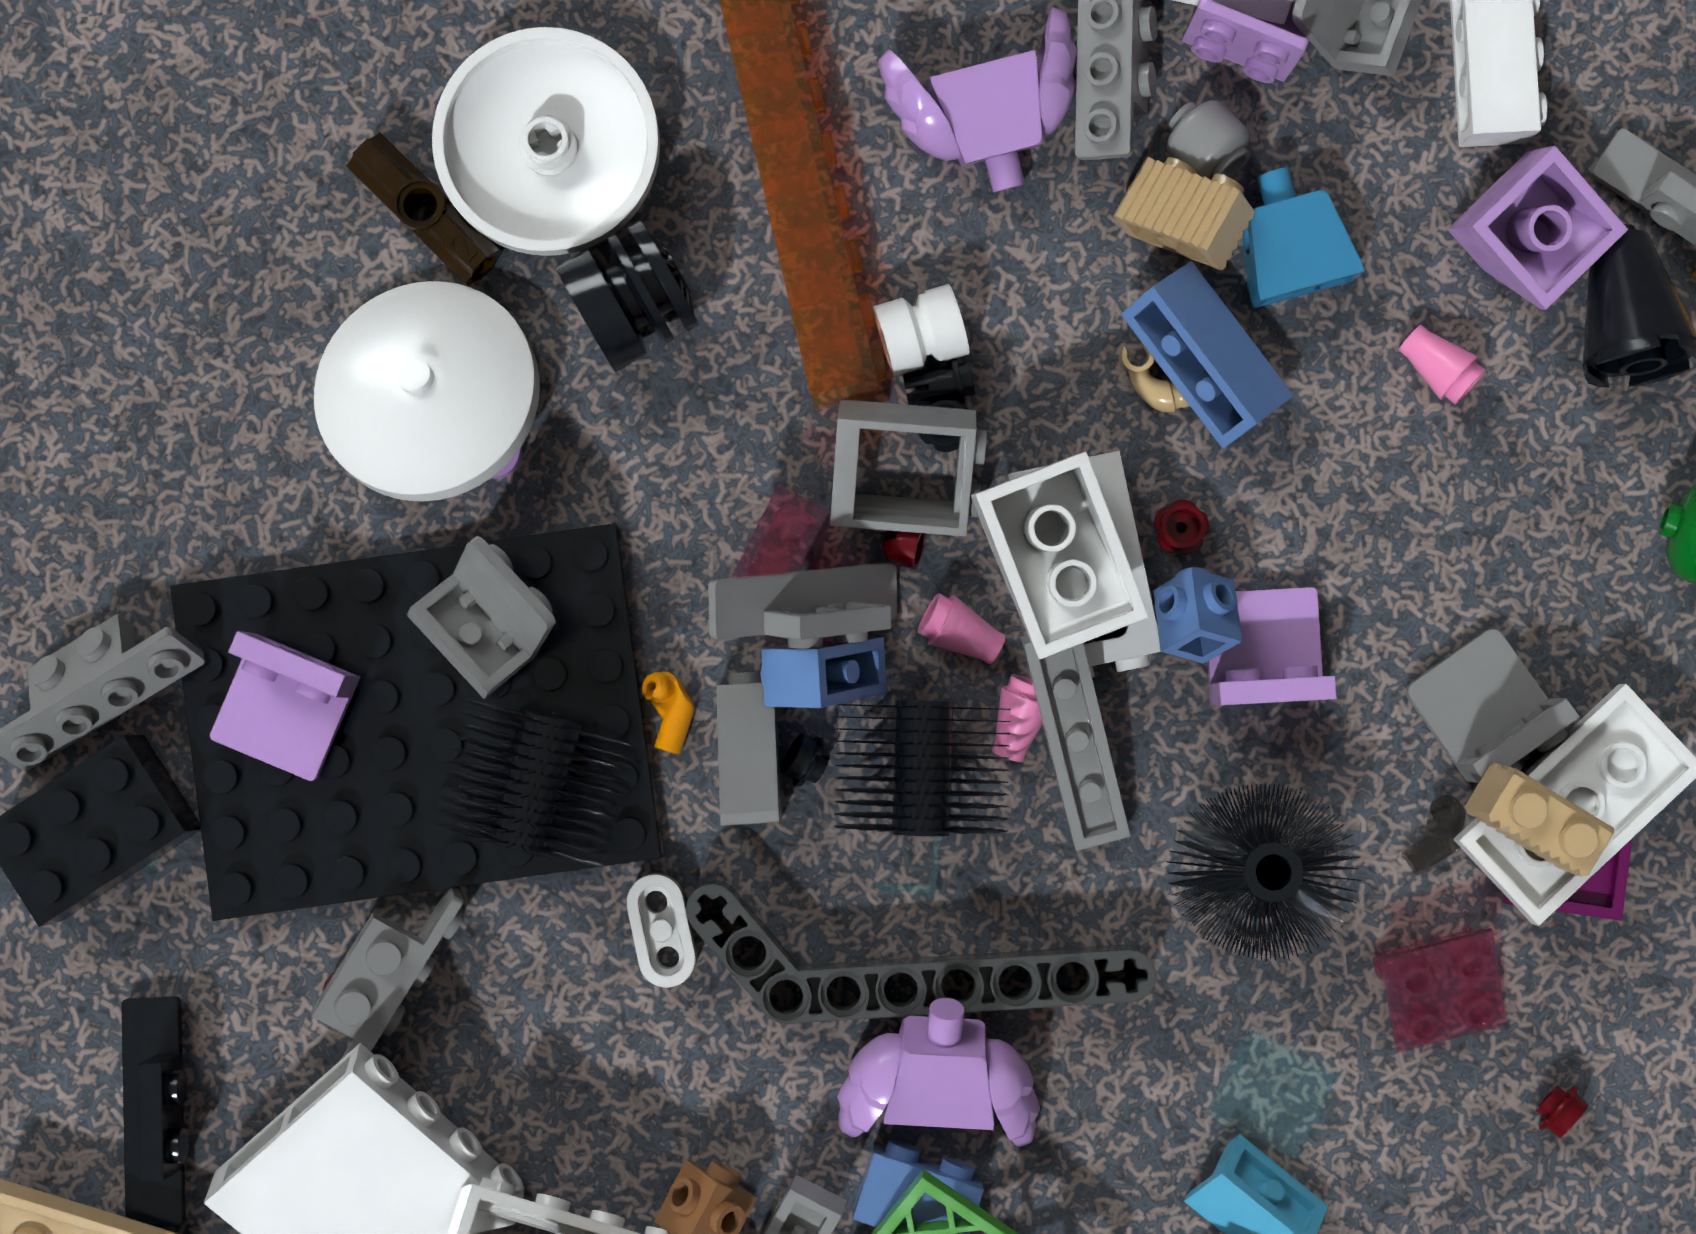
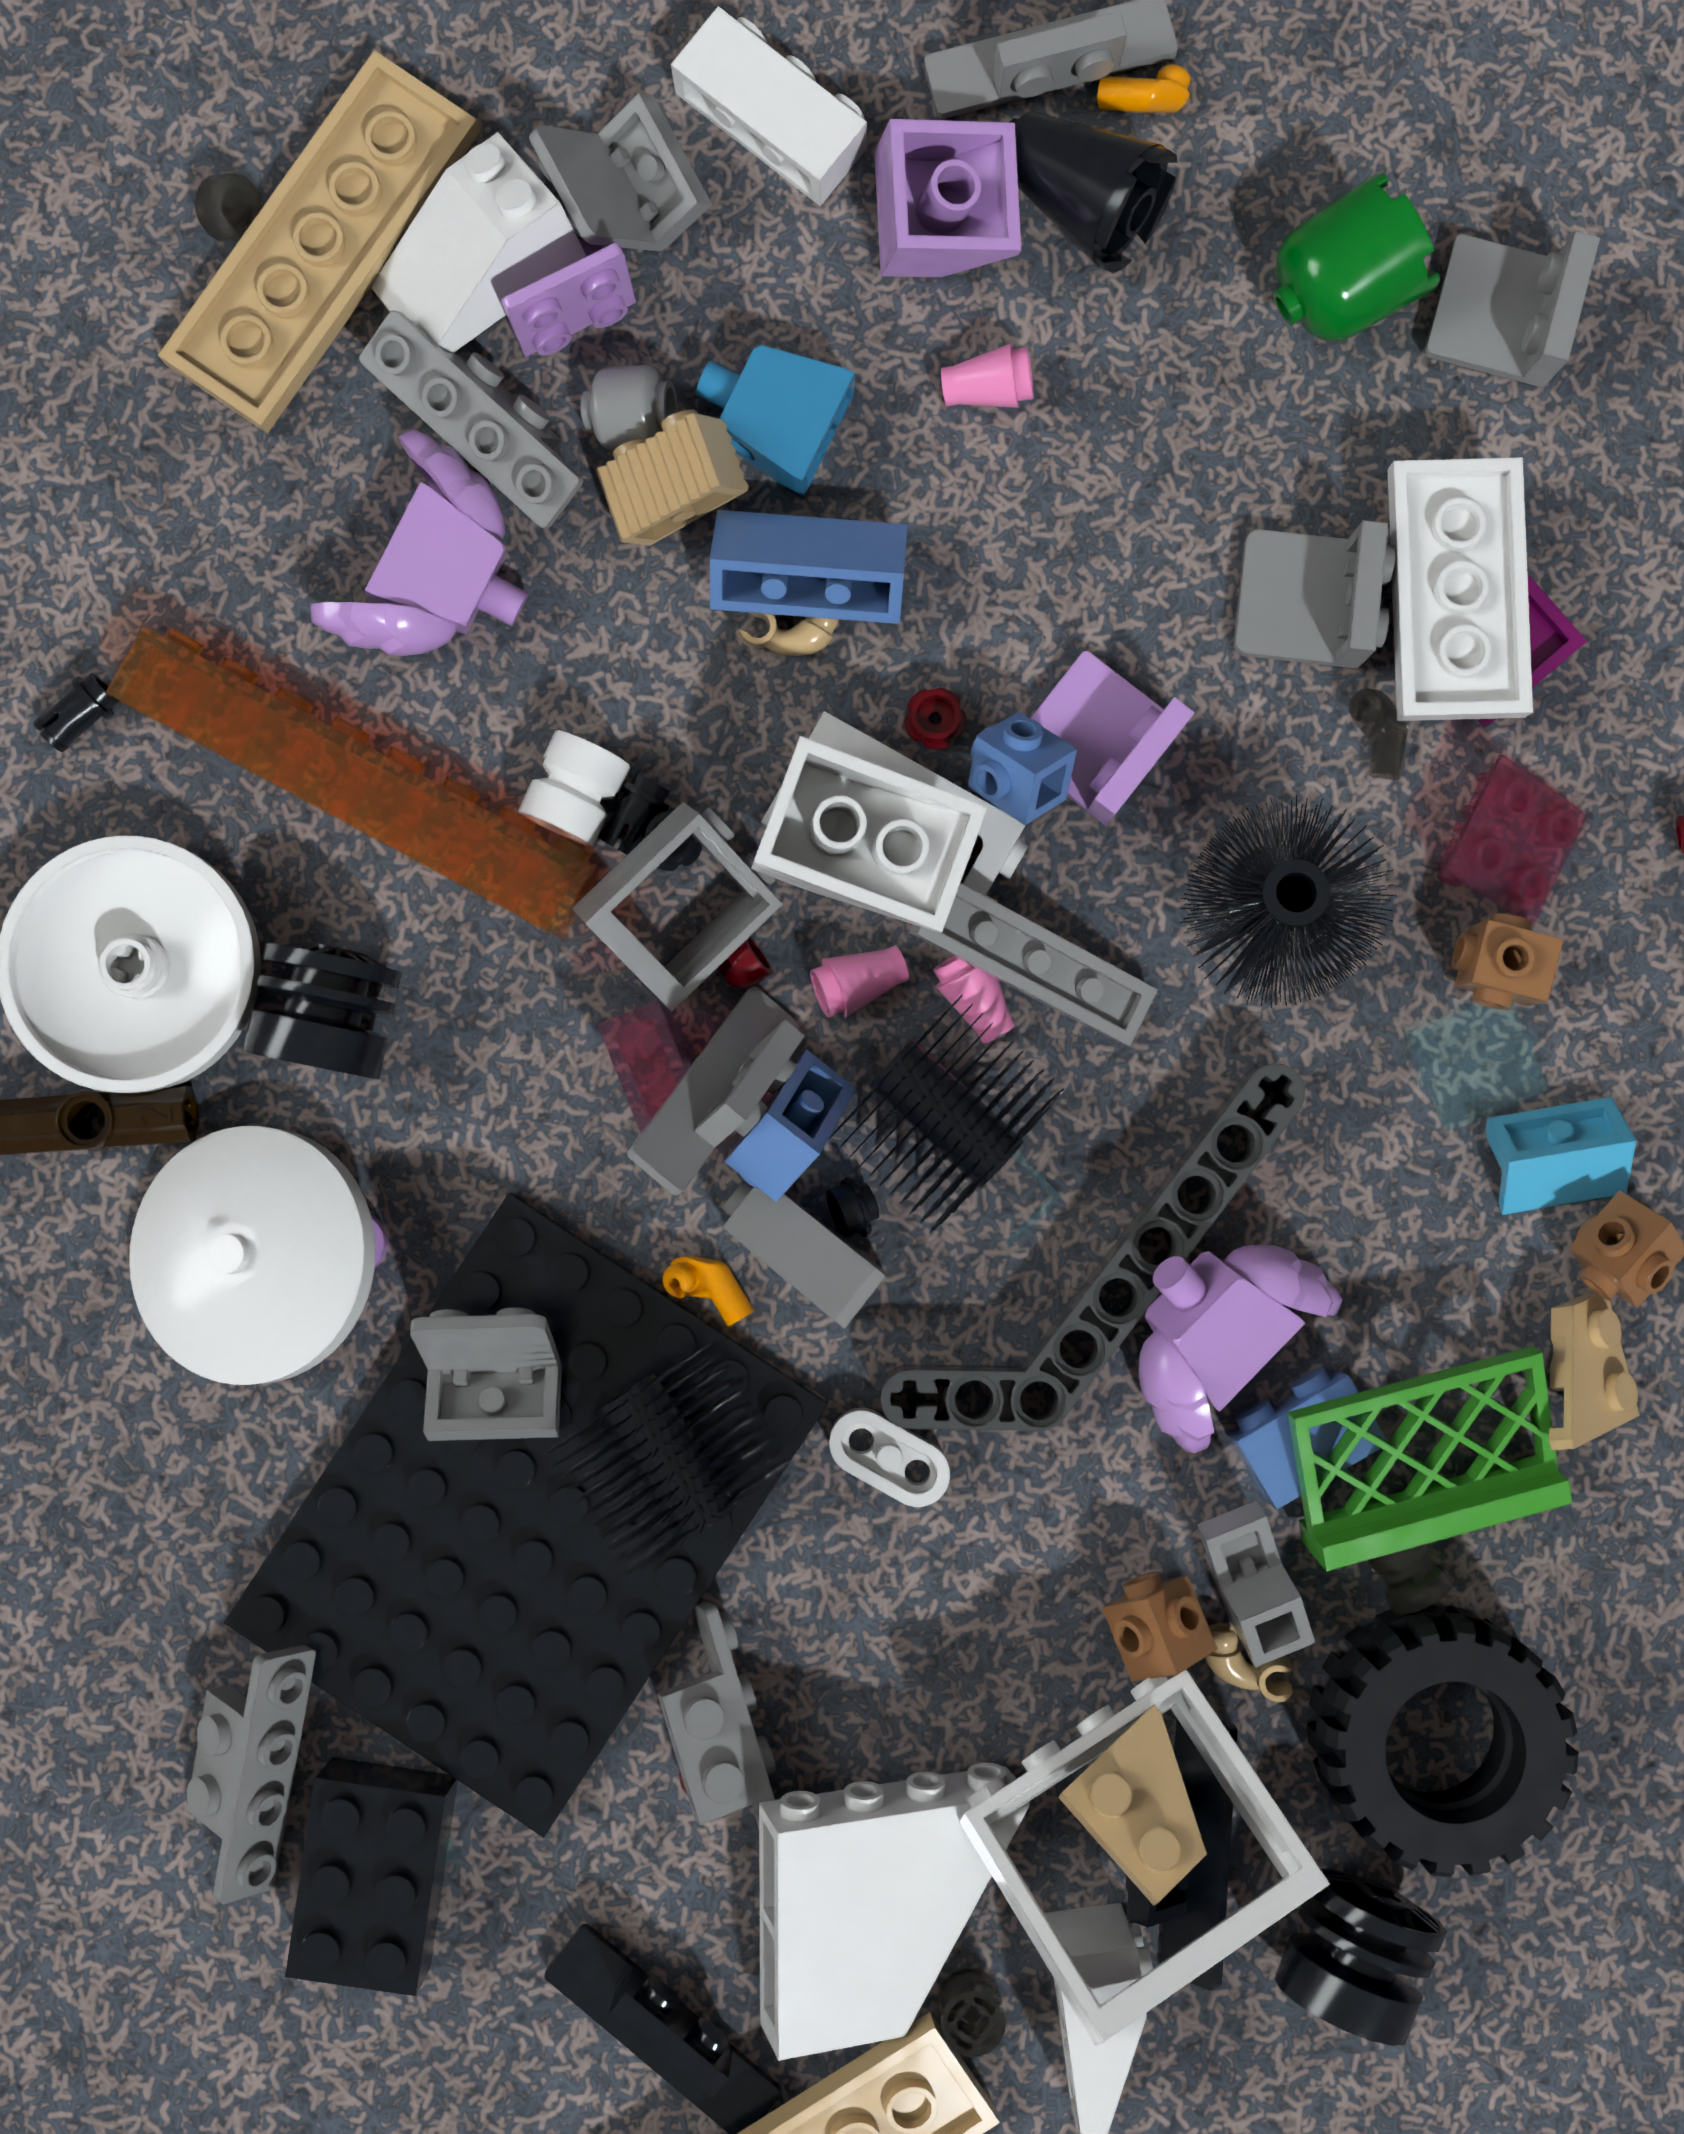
camera: 50 degrees left, 0 degrees up
(283, 705) = (411, 1615): lavender bracket -> none
(1369, 1068) = (1506, 962): none -> medium nougat brick
(1539, 819) = (1446, 631): tan brick -> none

